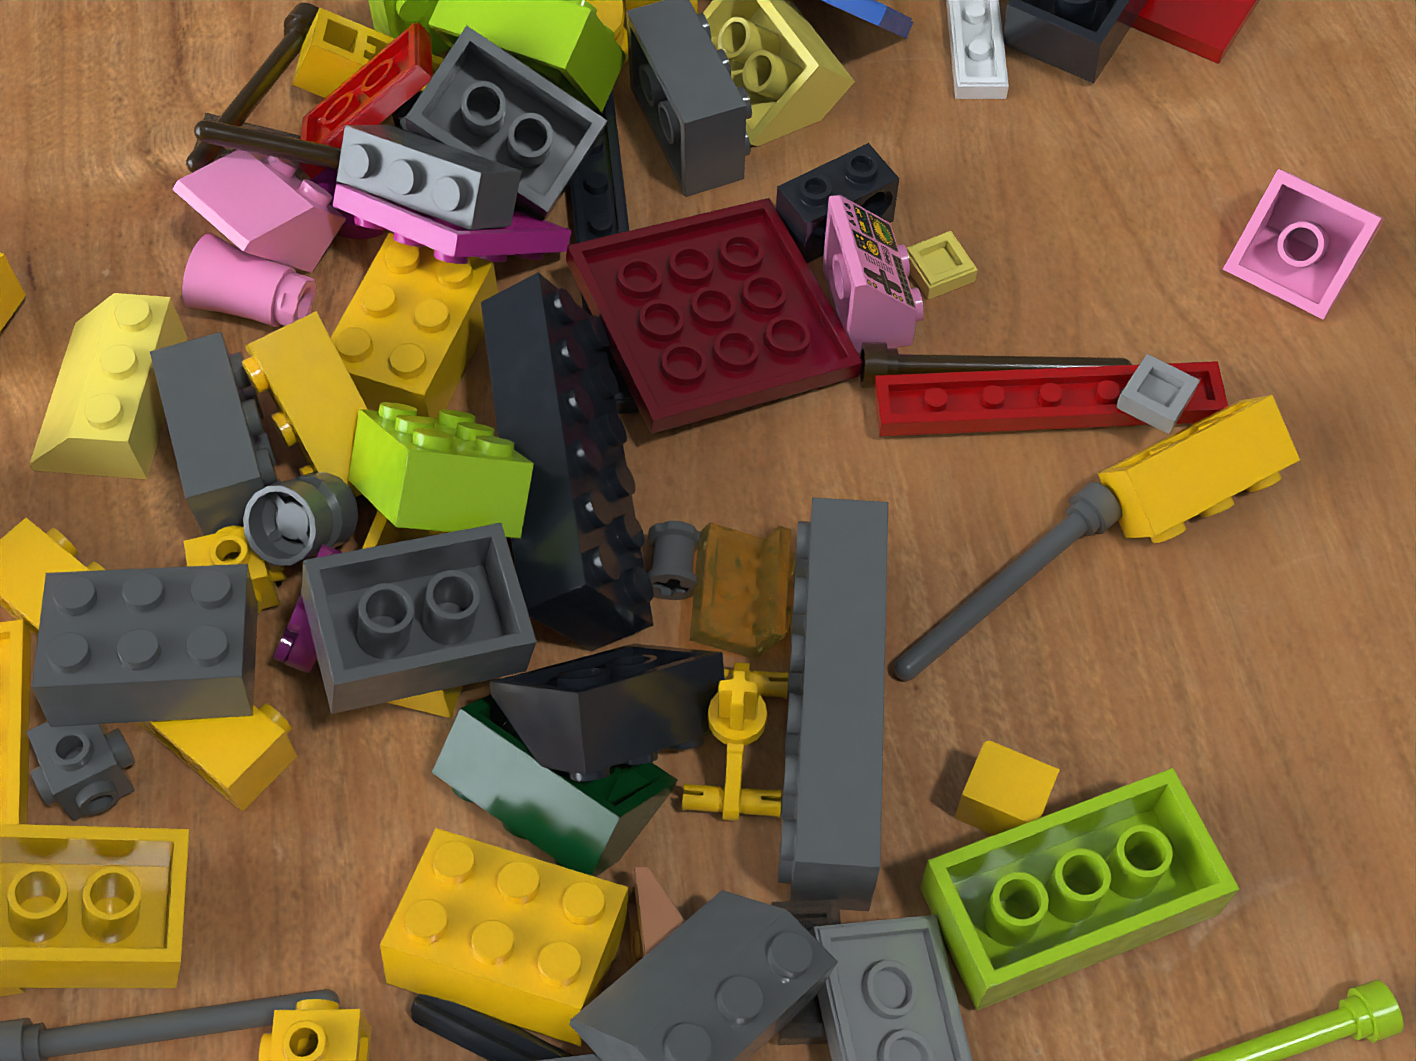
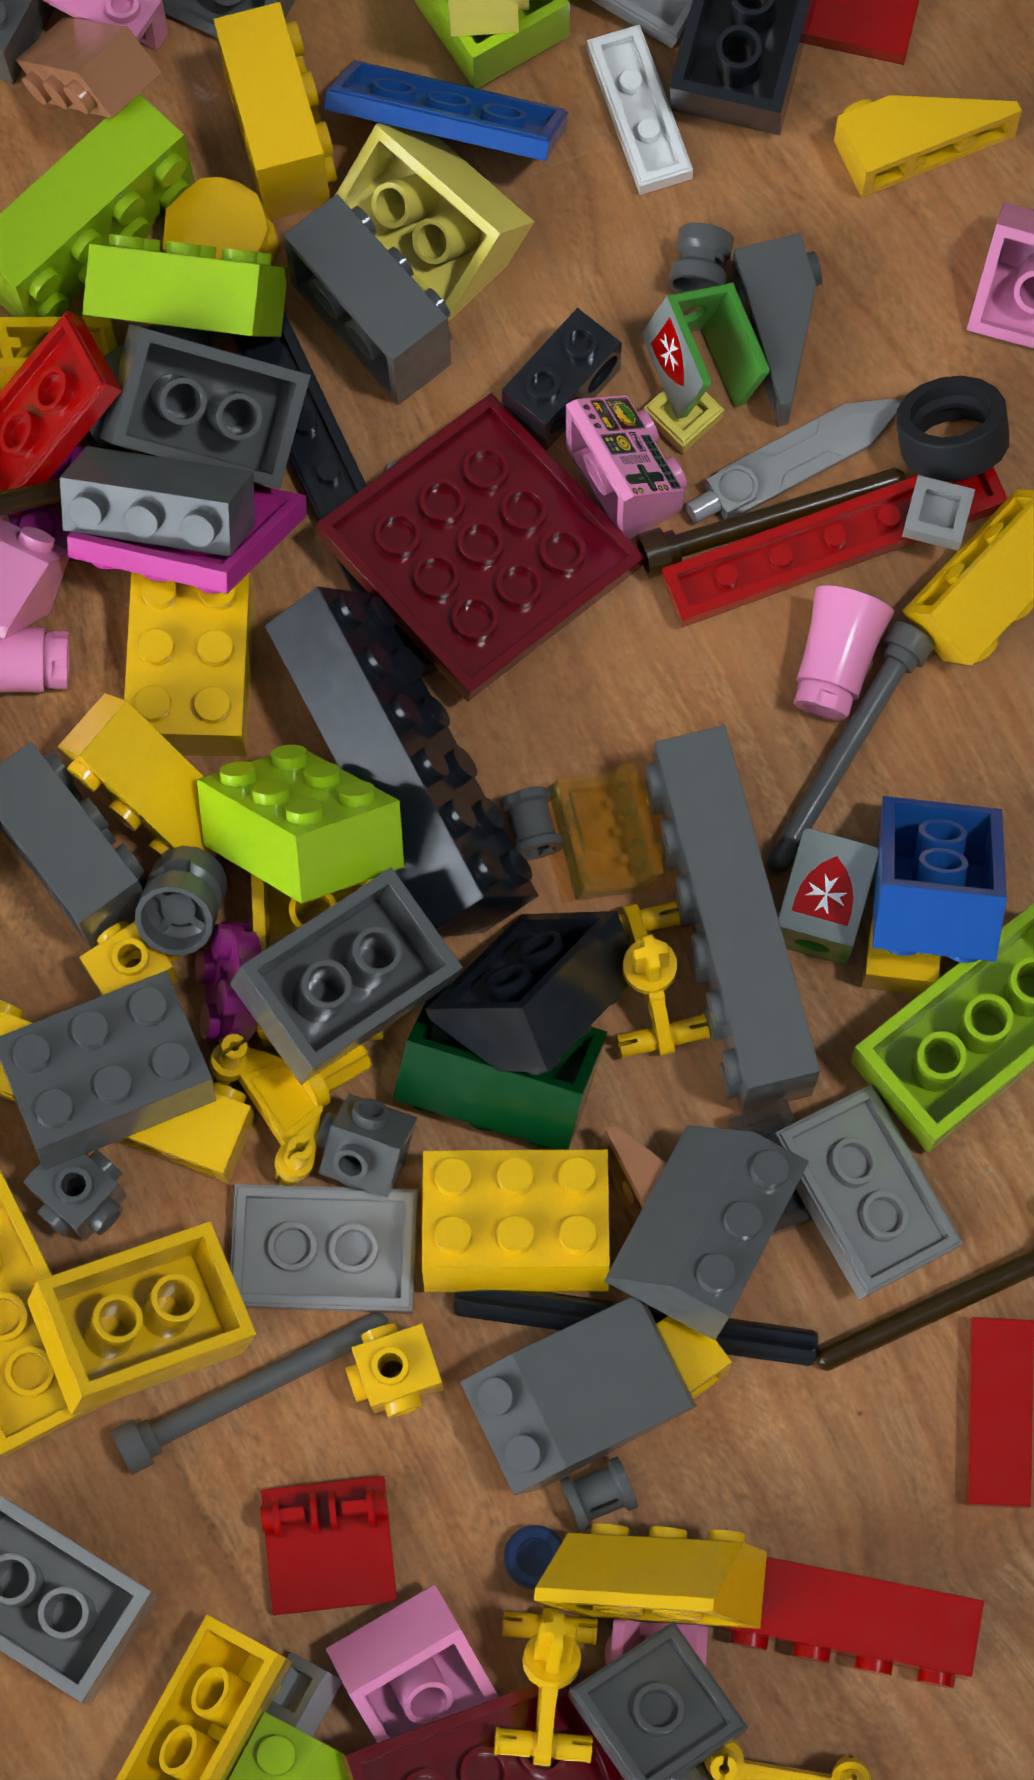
camera: 15 degrees left, 15 degrees up
(300, 906) = (324, 1248): none -> light grey tile
(330, 743) = (284, 1103): none -> yellow axle
(386, 809) = (365, 1144): none -> dark grey brick
(943, 709) = (826, 895): none -> piece
(991, 153) = (701, 258): none -> dark grey wheel
(996, 197) = (727, 335): none -> bright green piece
(1026, 489) = (839, 650): none -> bright pink plant
(1029, 327) = (793, 459): none -> light grey piece
(1053, 199) = (777, 293): none -> dark grey slope
(1066, 721) = (939, 879): none -> blue brick
(1192, 330) = (959, 455): none -> black tyre
(1221, 106) = (914, 134): none -> yellow slope

